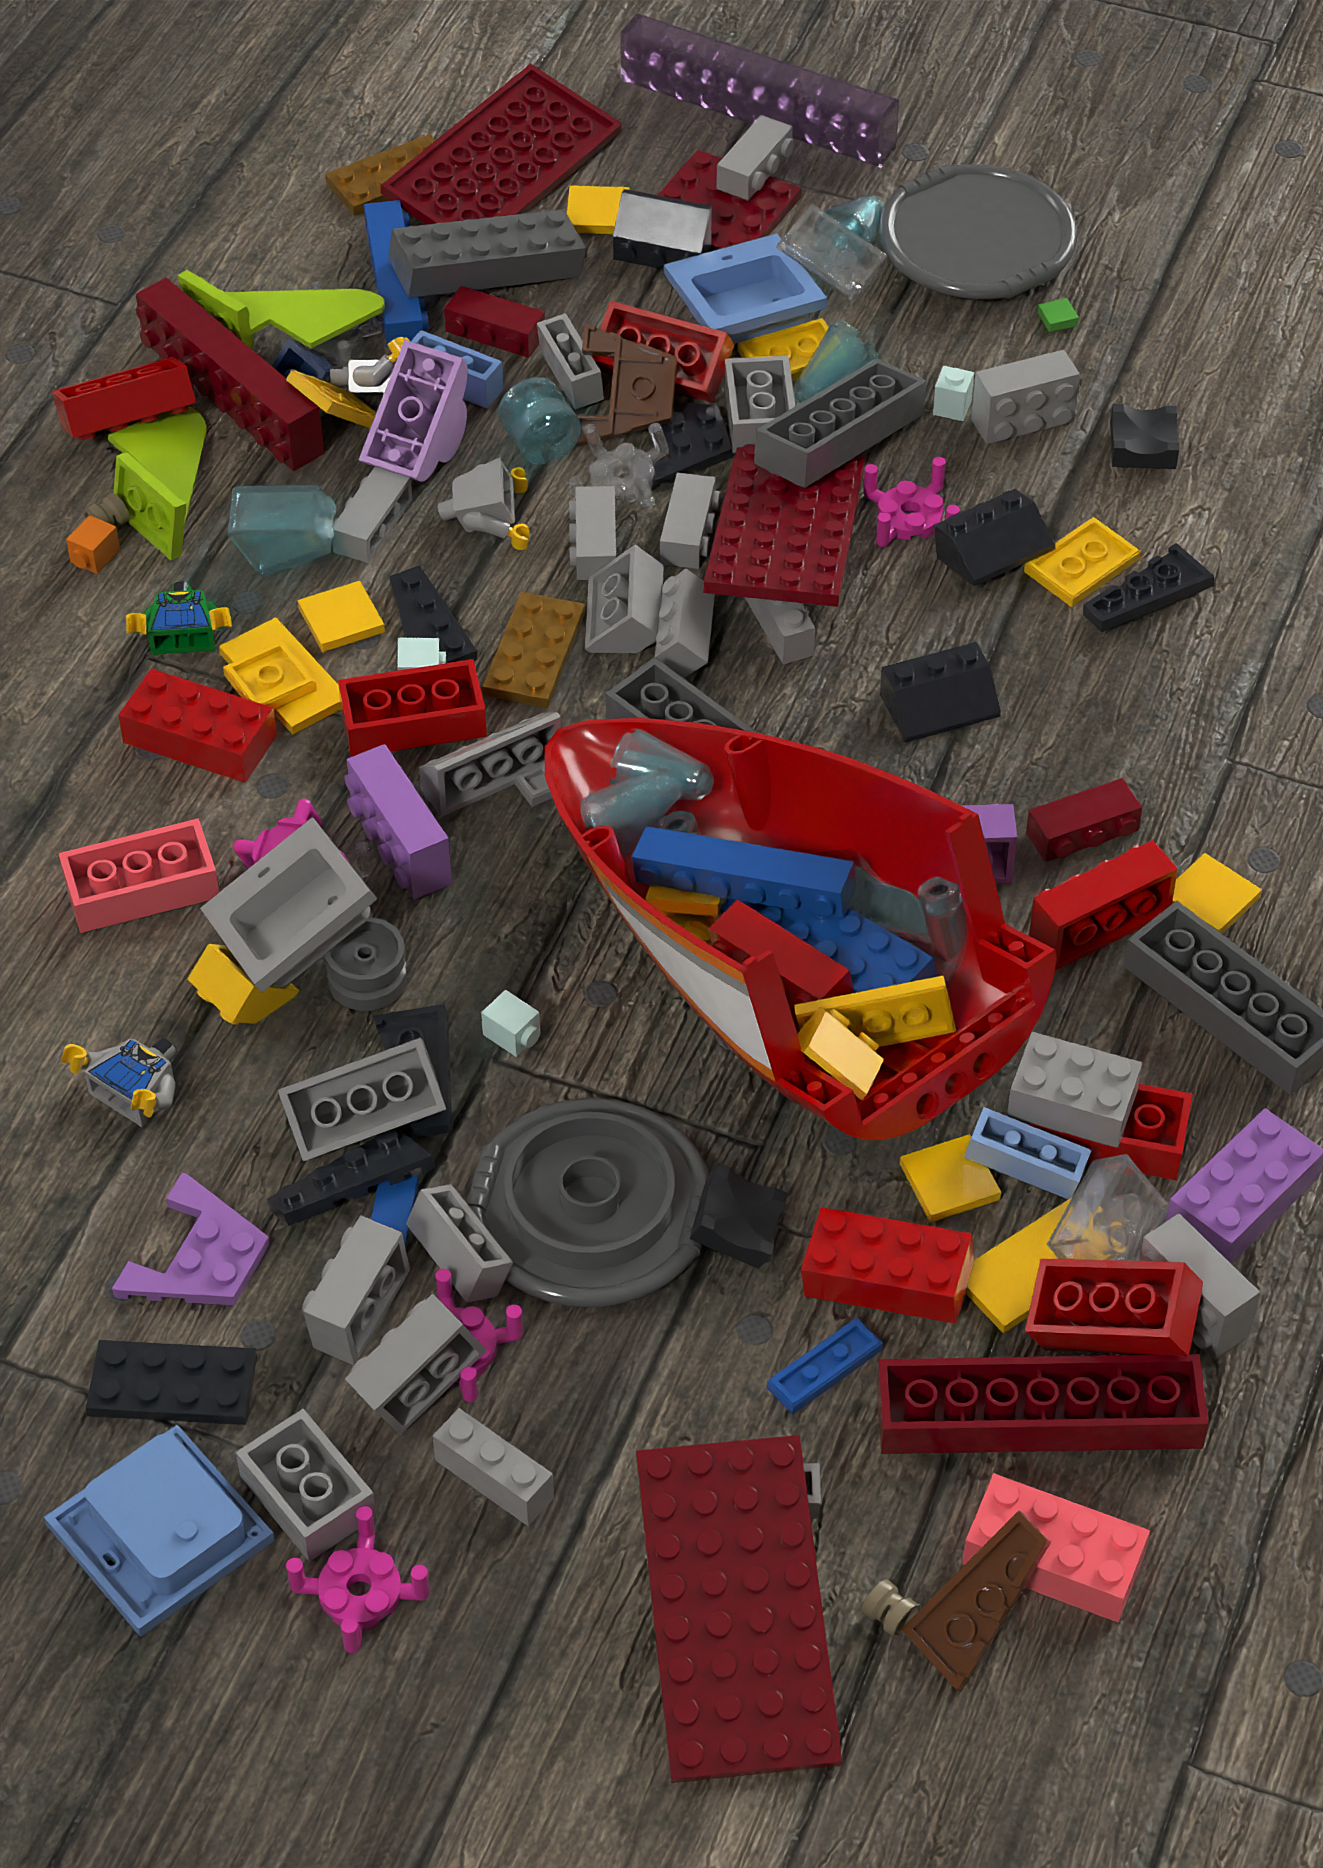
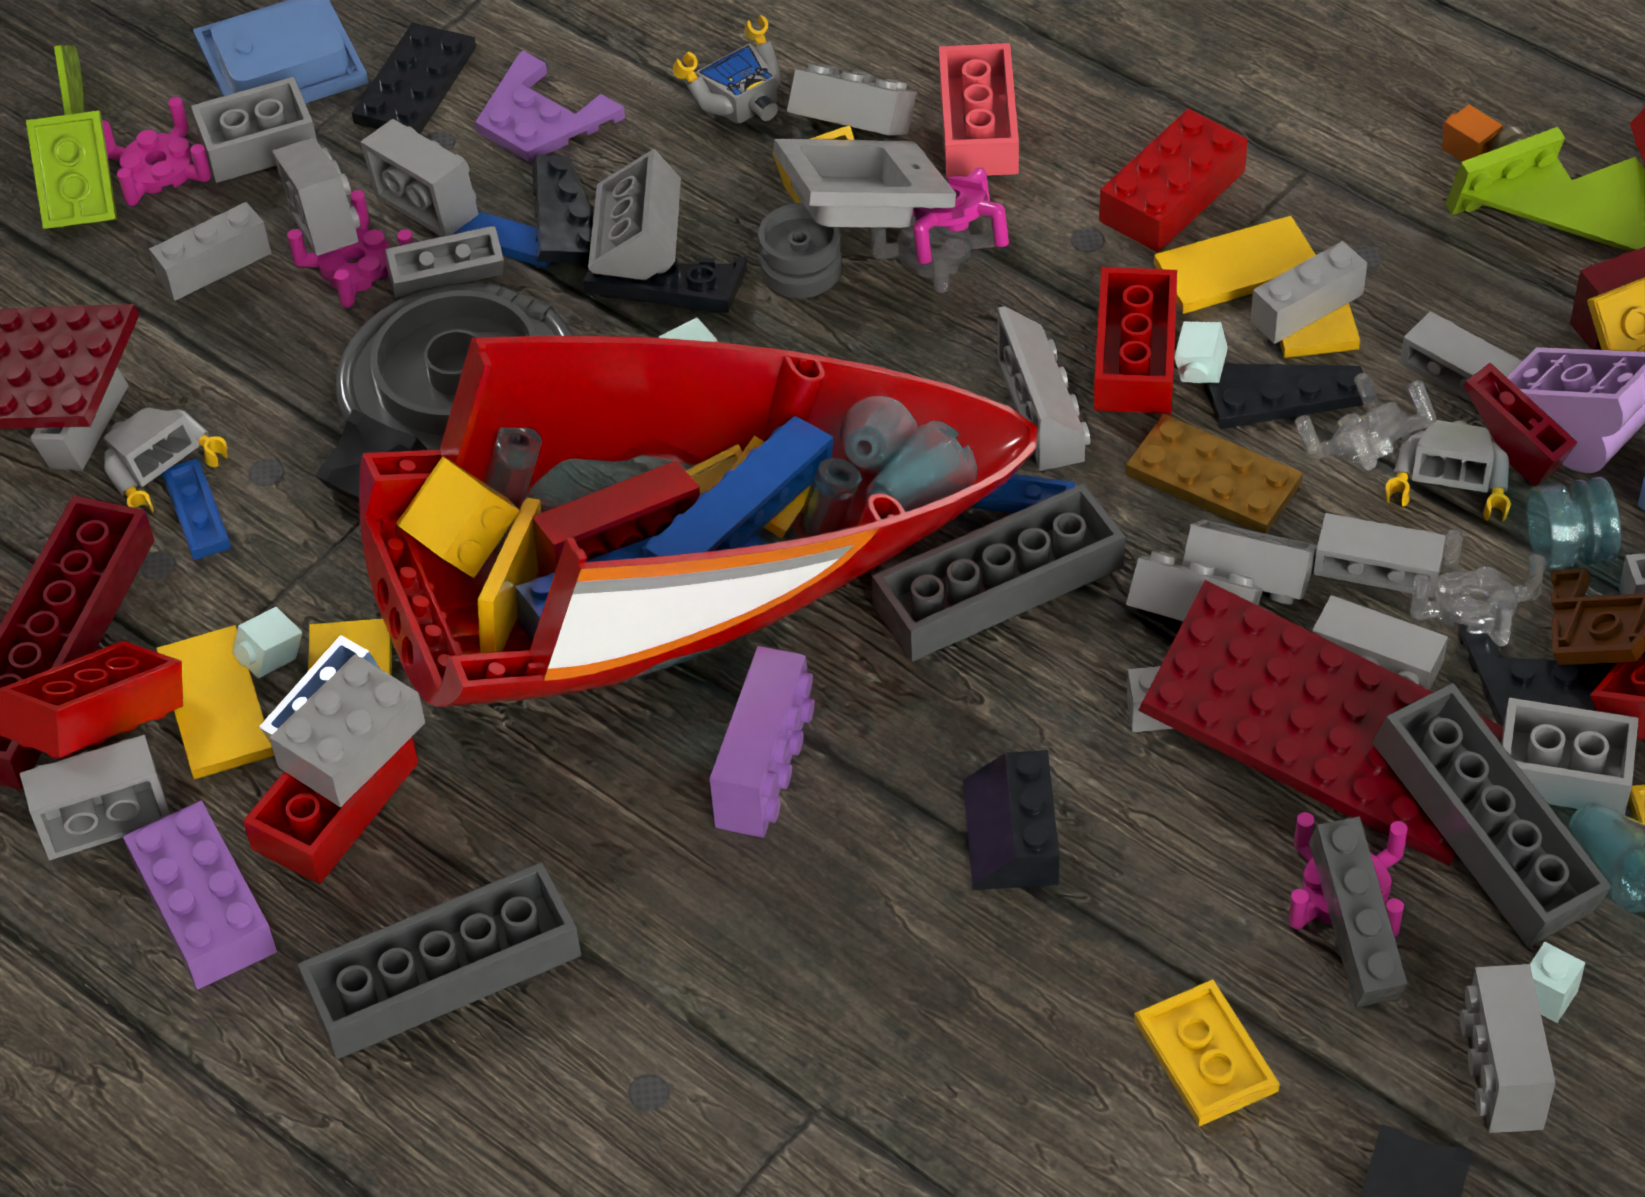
camera: 110 degrees right, 0 degrees up
(159, 963) = (852, 99): none -> light grey brick
(179, 621) = (1332, 182): torso -> none
(270, 676) = (1224, 242): yellow tile -> none
(281, 525) = (1439, 260): clear light blue slope -> none
(329, 604) = (1308, 292): none -> light grey brick
(398, 822) = (960, 295): medium lavender brick -> none
(410, 1630) = (71, 155): none -> lime piece
(454, 452) = (1519, 426): none -> dark red slope
(460, 538) = (1371, 434): none -> clear plate
(775, 1407) = (152, 444): none -> light grey torso
(888, 1265) = (258, 560): red brick -> none
(950, 480) = (1357, 912): none -> dark grey brick
(979, 1219) = (267, 642): none -> light aqua brick
(993, 537) = (1254, 945): black slope -> none
(1084, 820) = (760, 908): dark red brick -> none
(1104, 903) = (616, 867): red brick -> none
(1109, 1213) = (209, 749): clear slope -> none
(1157, 586) = (1126, 1108): black wing -> none
(1215, 892) = (610, 1010): yellow tile -> none

